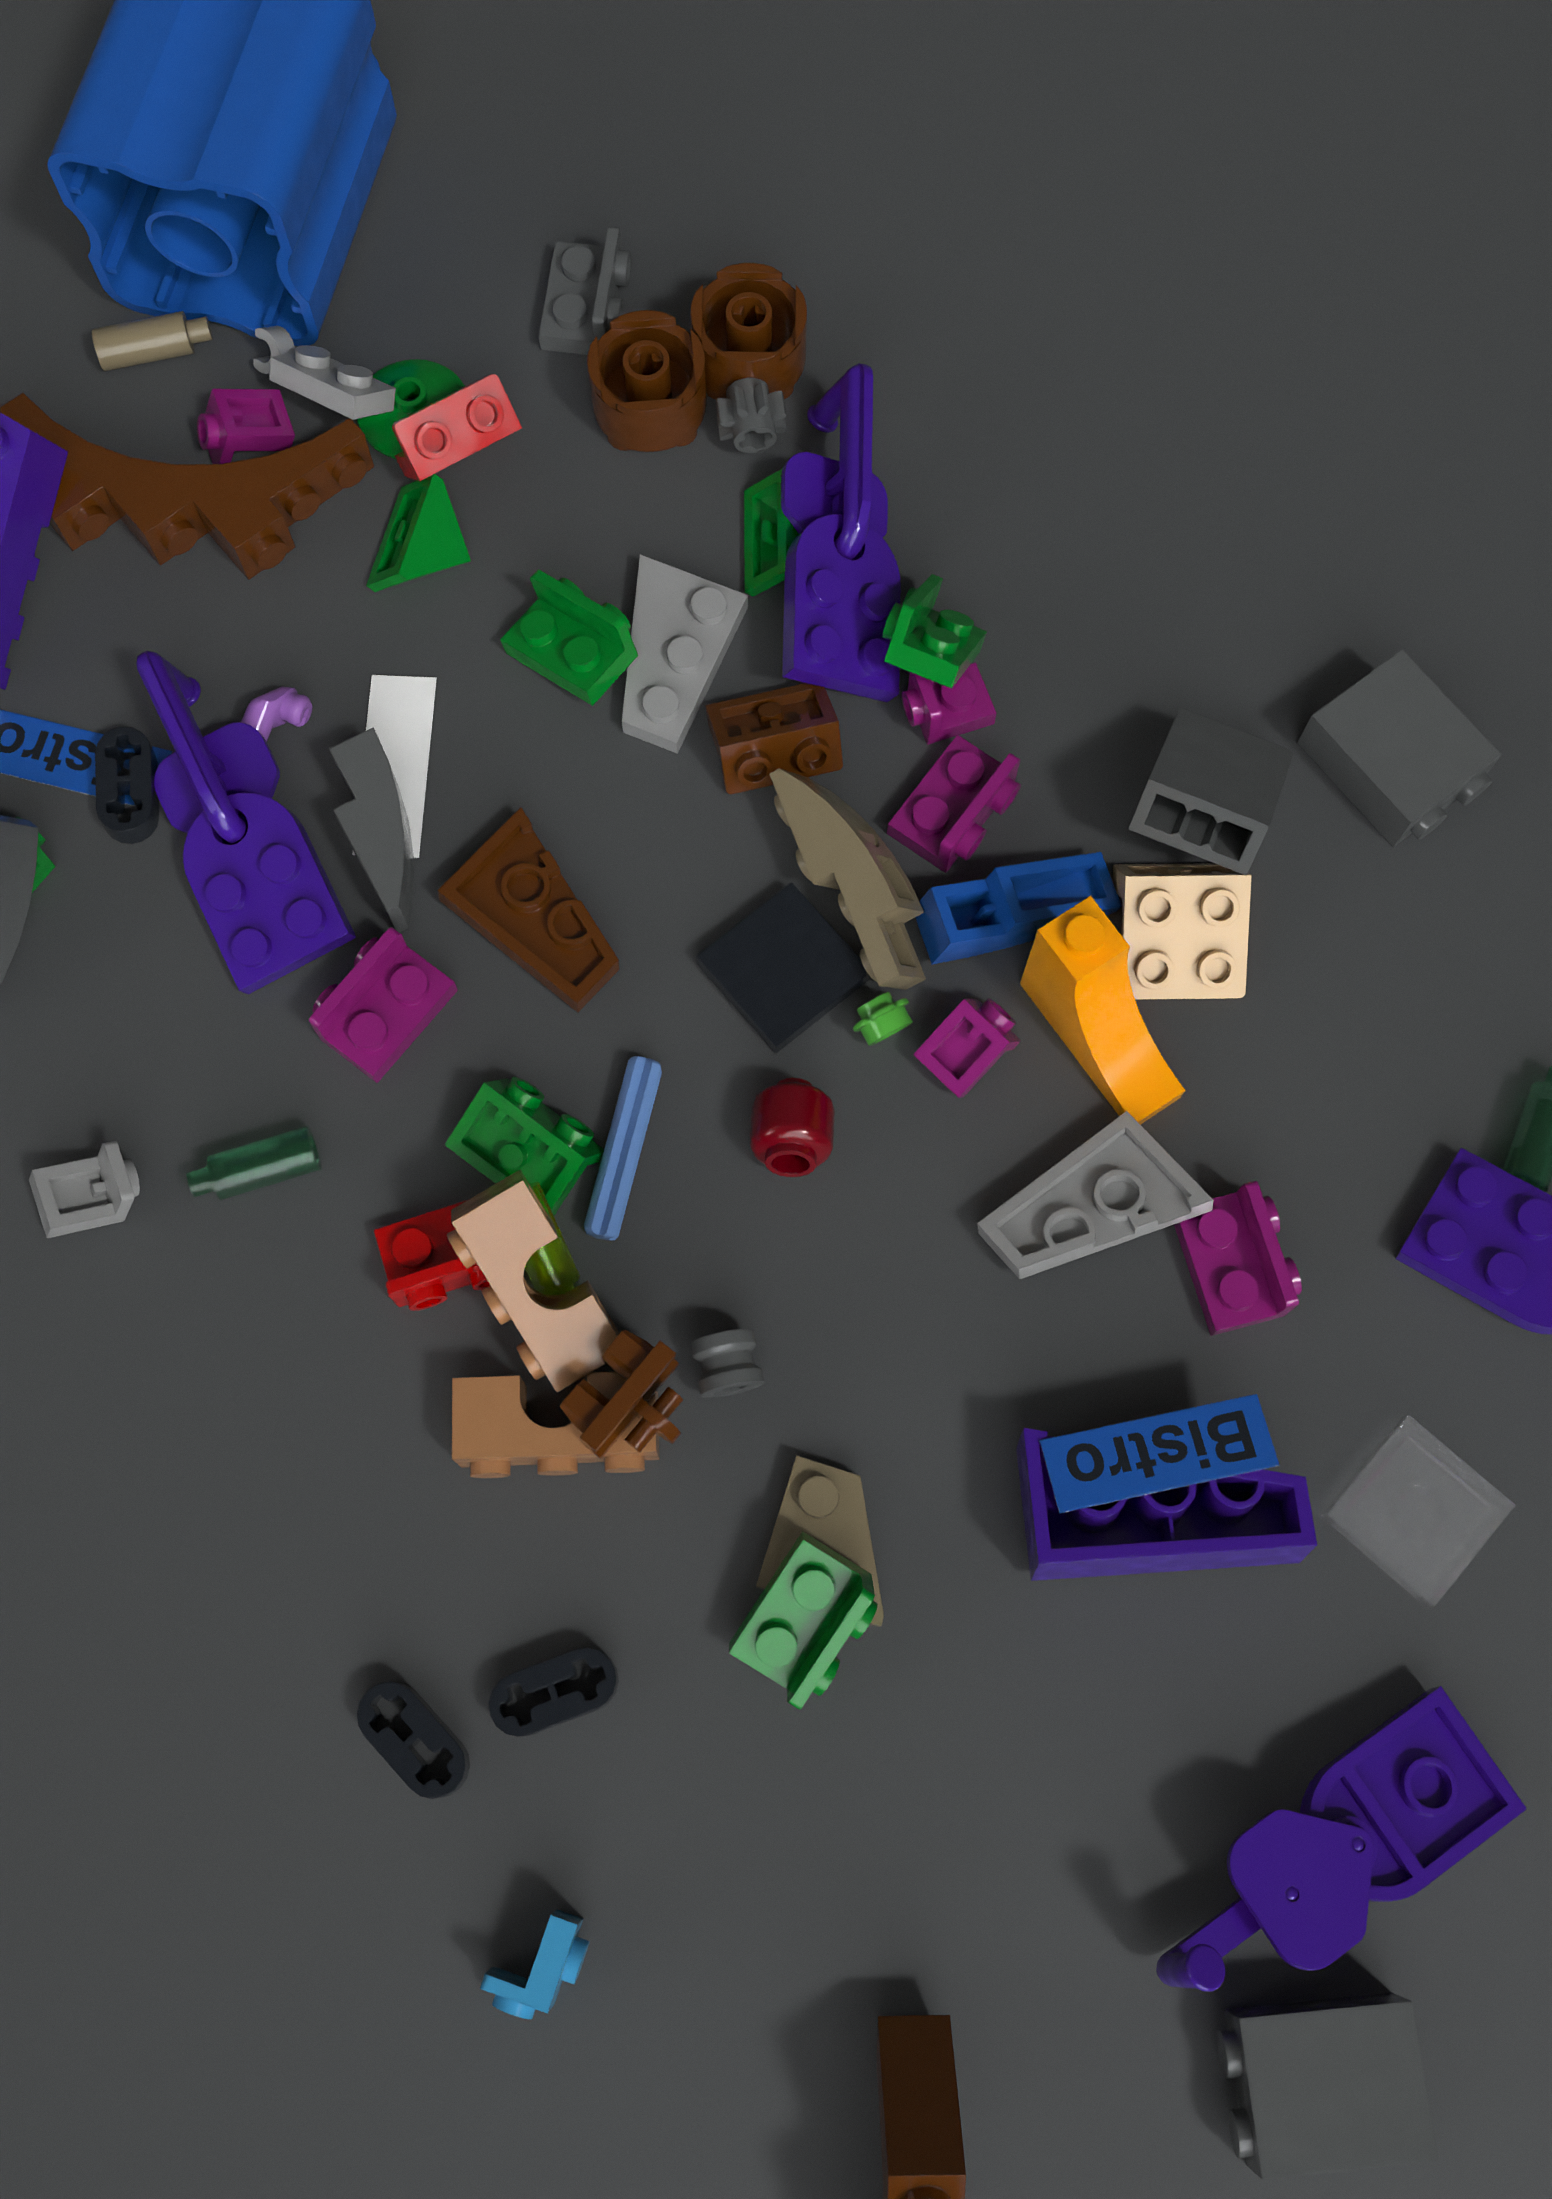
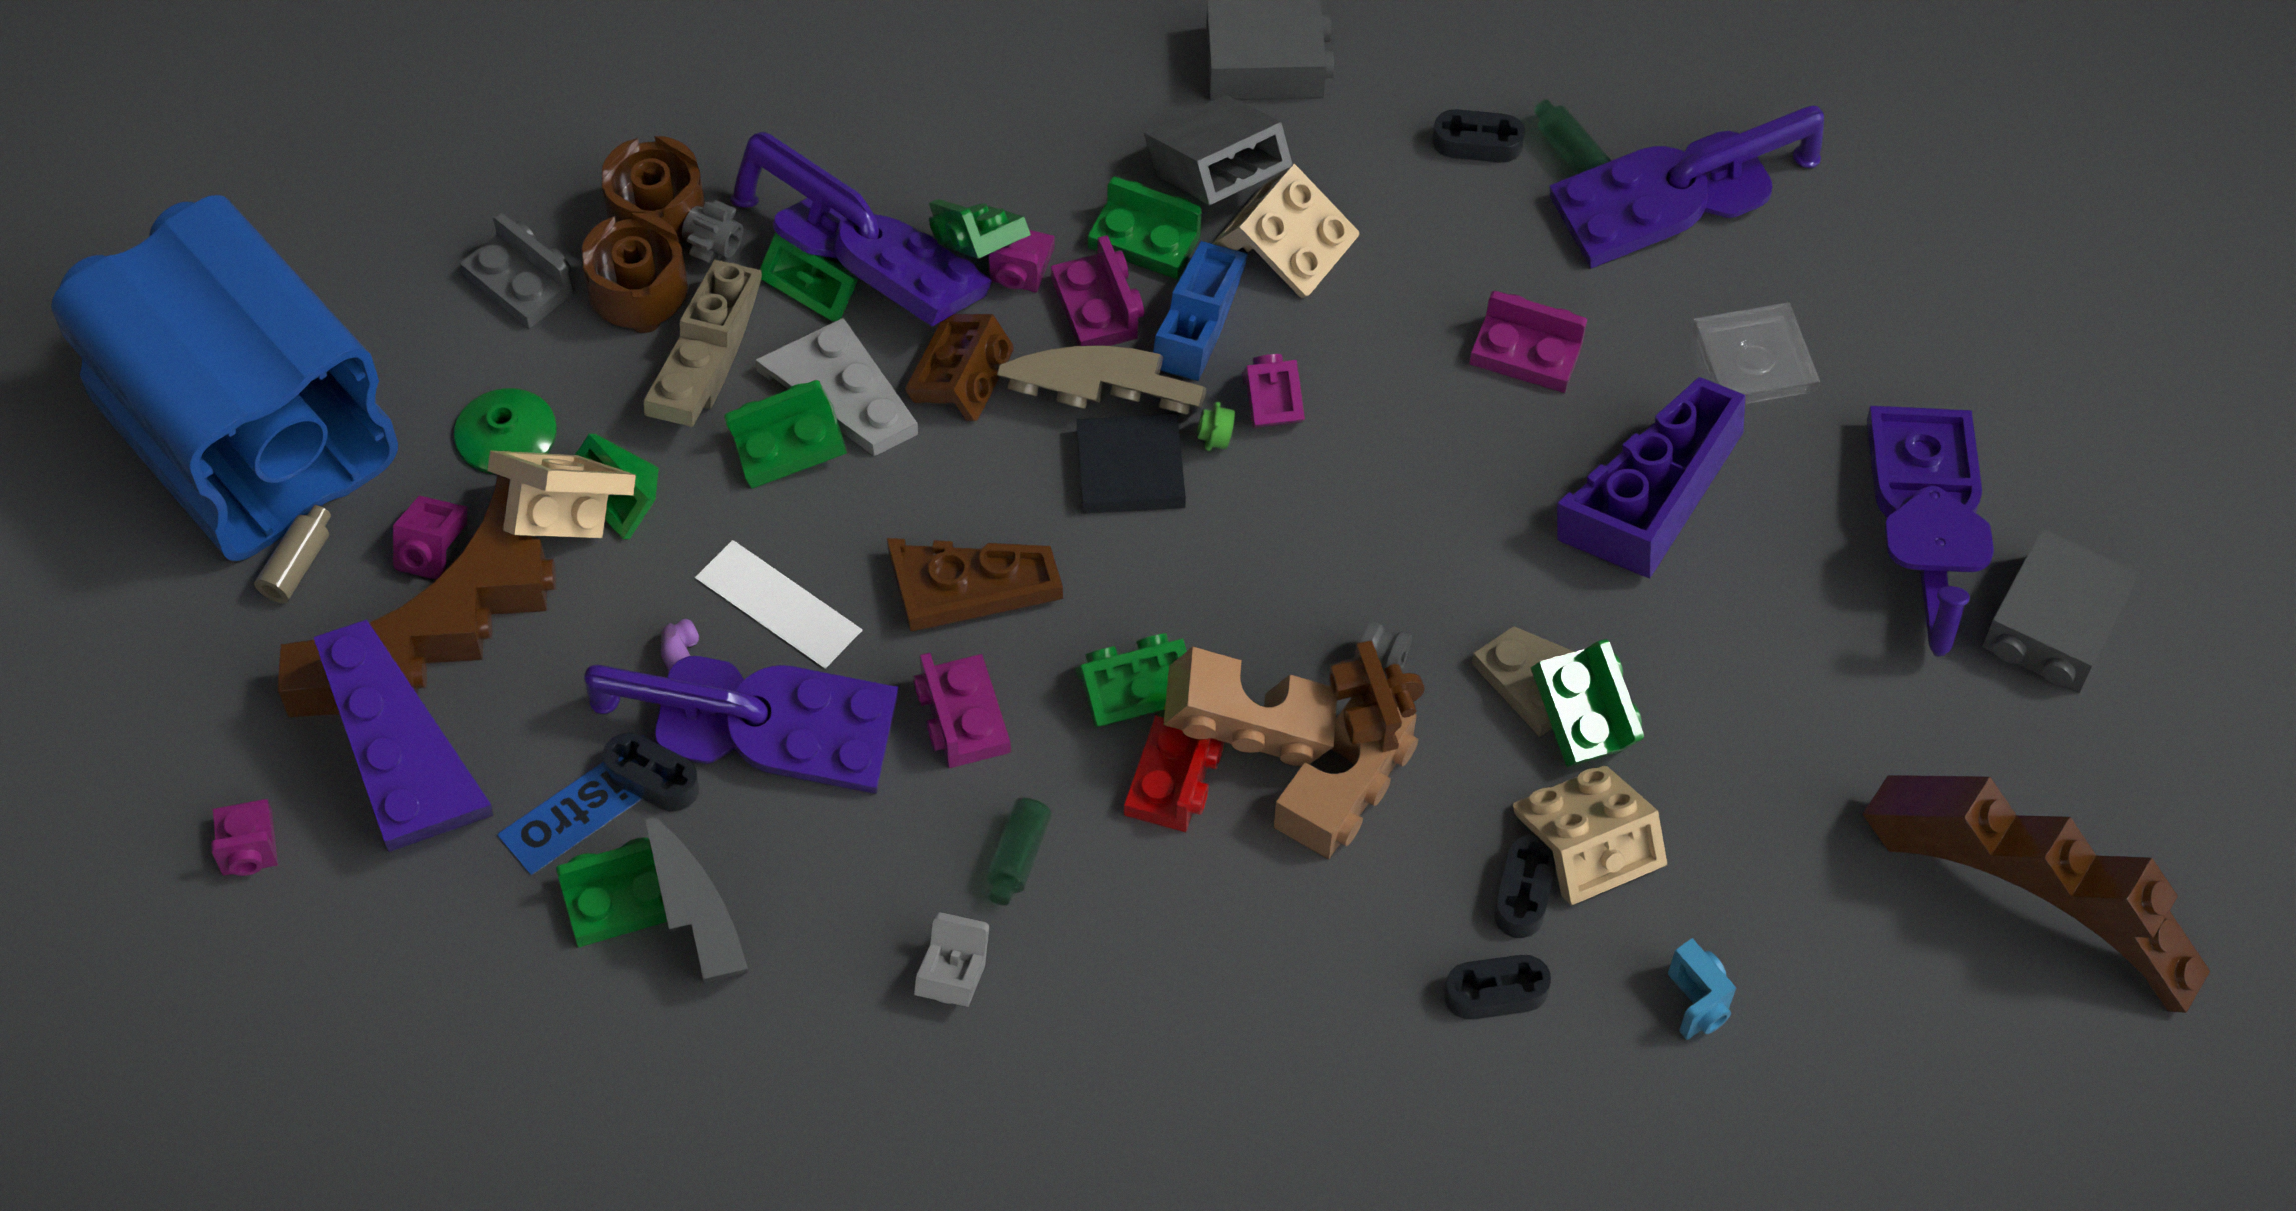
camera: 55 degrees left, 15 degrees down
(319, 378) = (433, 463): light grey plate -> none
(339, 488) = (557, 493): none -> tan bracket
(377, 823) = (829, 628): dark grey slope -> none
(454, 427) = (570, 400): bracket -> none
(610, 508) = (706, 345): none -> dark tan slope
(623, 1148) = (1170, 614): medium blue axle -> none
(663, 1718) = (1597, 832): none -> tan bracket
(792, 1127) = (1251, 519): dark red head -> none
(1076, 791) = (1148, 227): none -> green bracket
(1085, 994) = (1305, 309): light orange arch -> none
(1092, 1200) = (1433, 388): light grey wing -> none
(1158, 1453) = (1627, 442): blue sticker -> none
(1469, 1032) = (1478, 135): none -> black beam

